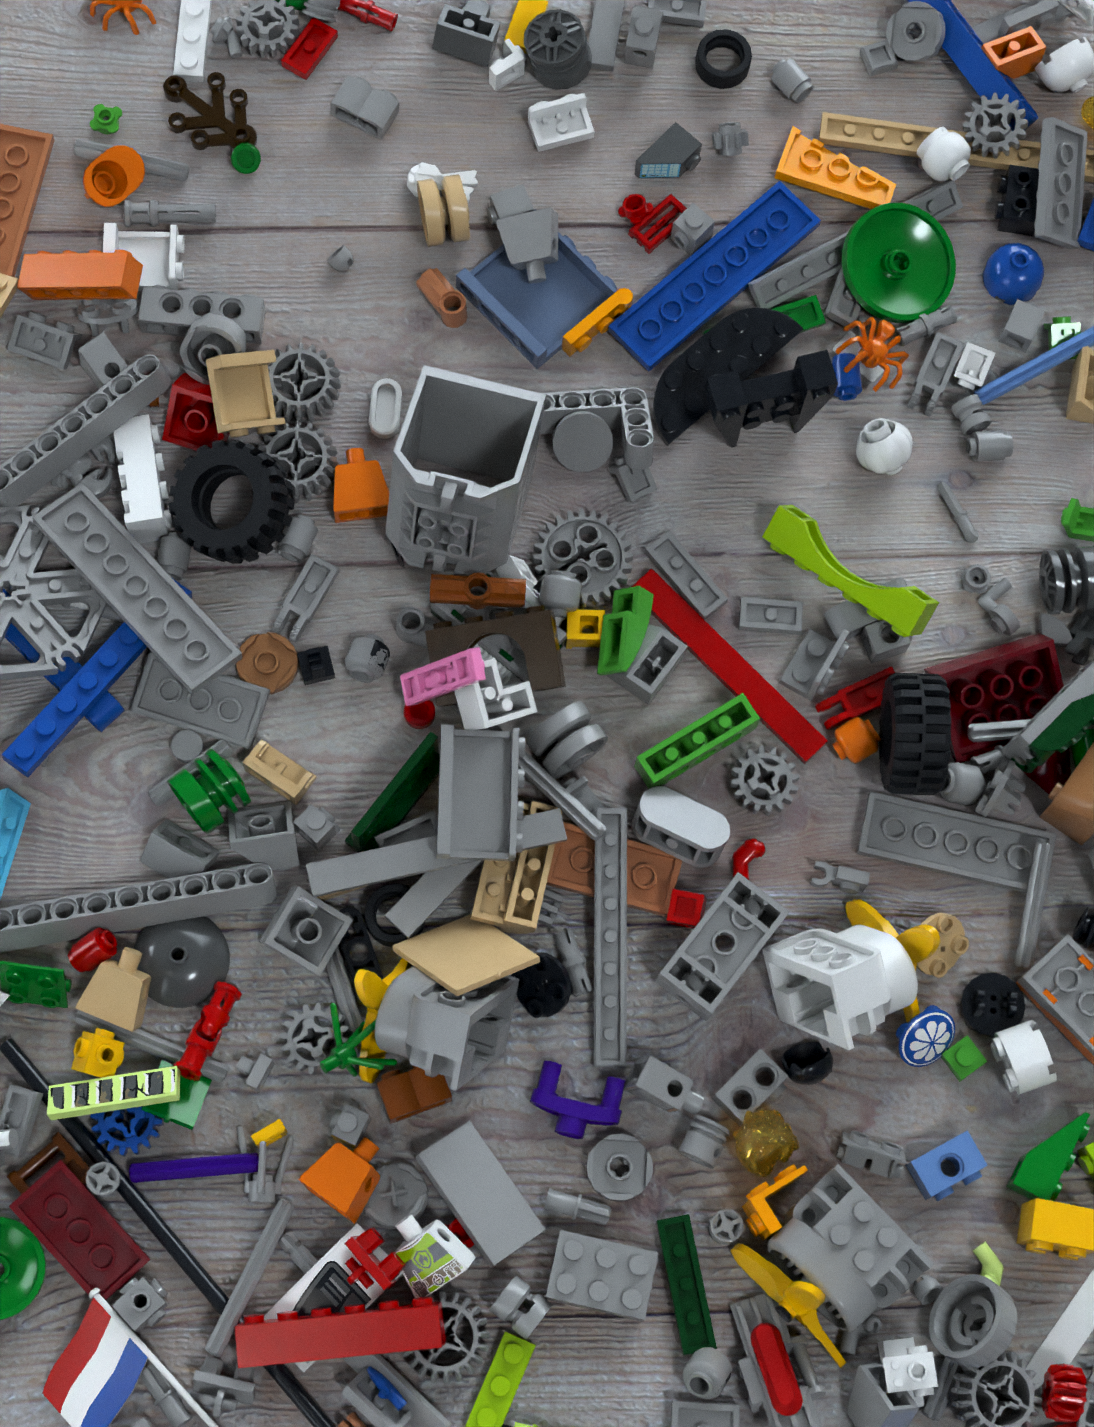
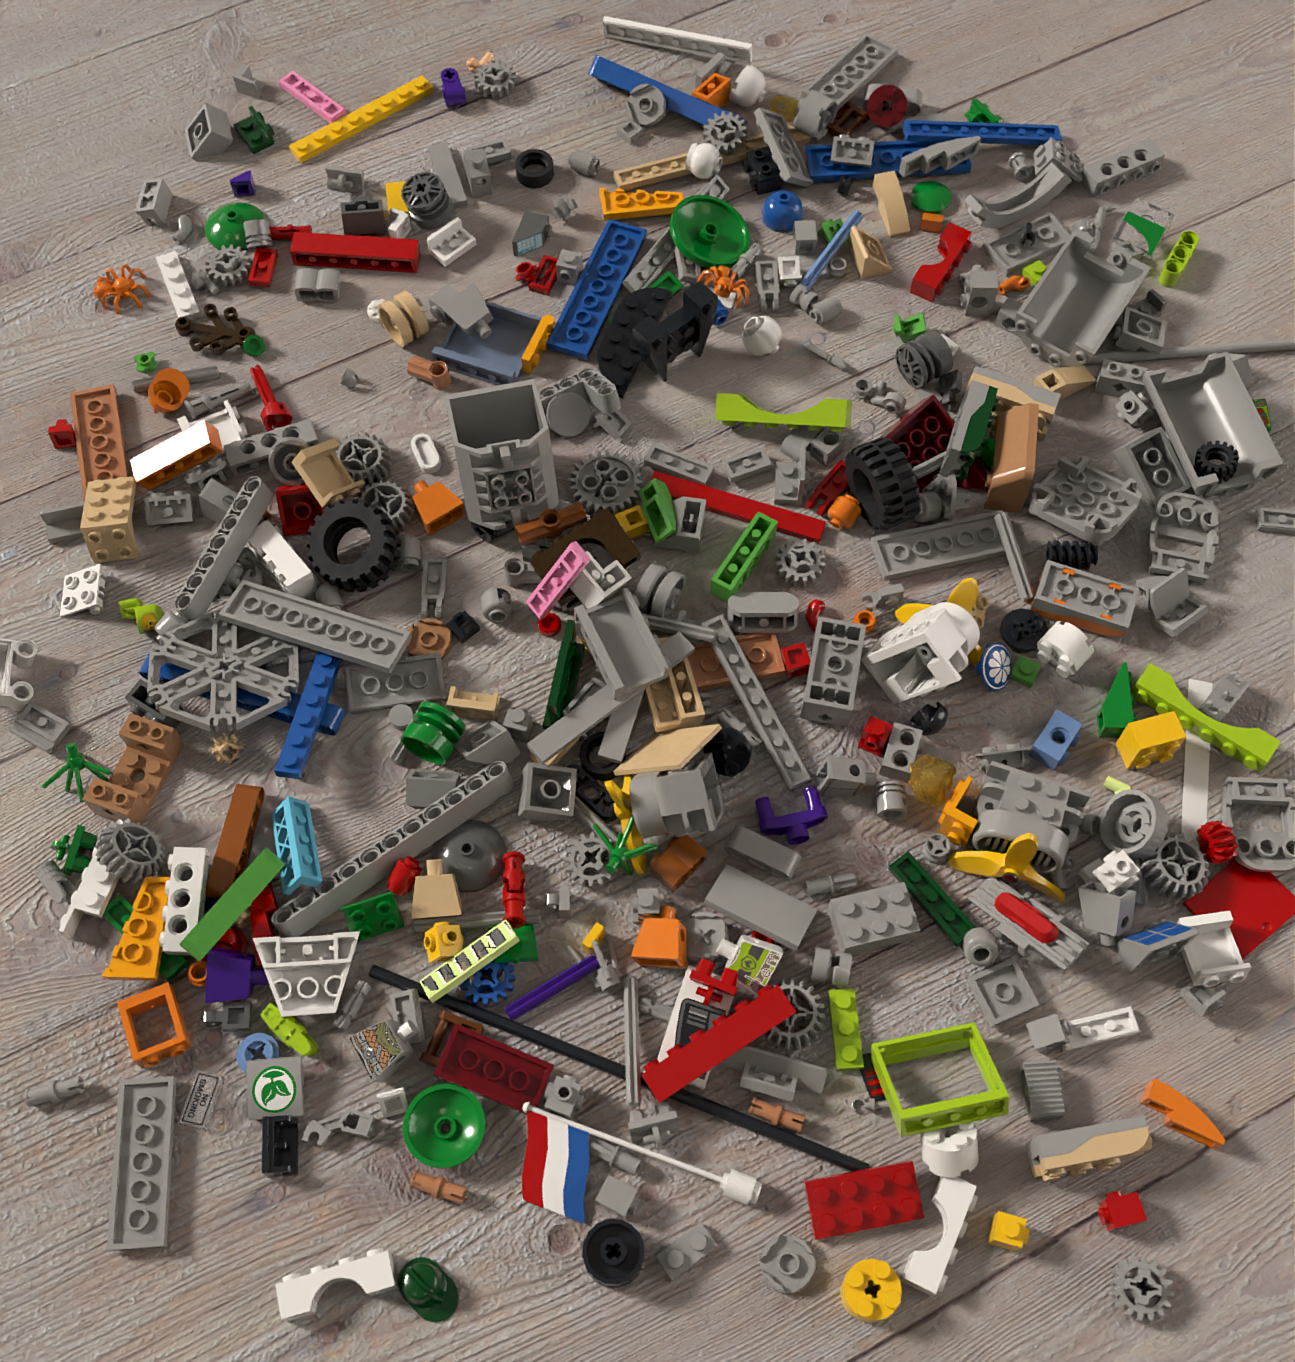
camera: 20 degrees left, 10 degrees down
(99, 1175) = (491, 1018): light grey wheel -> none
(227, 267) = (274, 413): none -> red piece
(386, 1389) = (769, 1068): blue helmet -> none
(434, 80) = (355, 252): none -> red brick
(517, 1129) = (762, 853): none -> light grey beam
(560, 592) = (605, 498): light grey head -> none
(605, 1180) = (848, 832): light grey plate -> none
(730, 1052) = (875, 736): none -> red brick
(805, 888) = (868, 617): none -> orange plate
(1041, 389) = (837, 267): none -> light grey plate

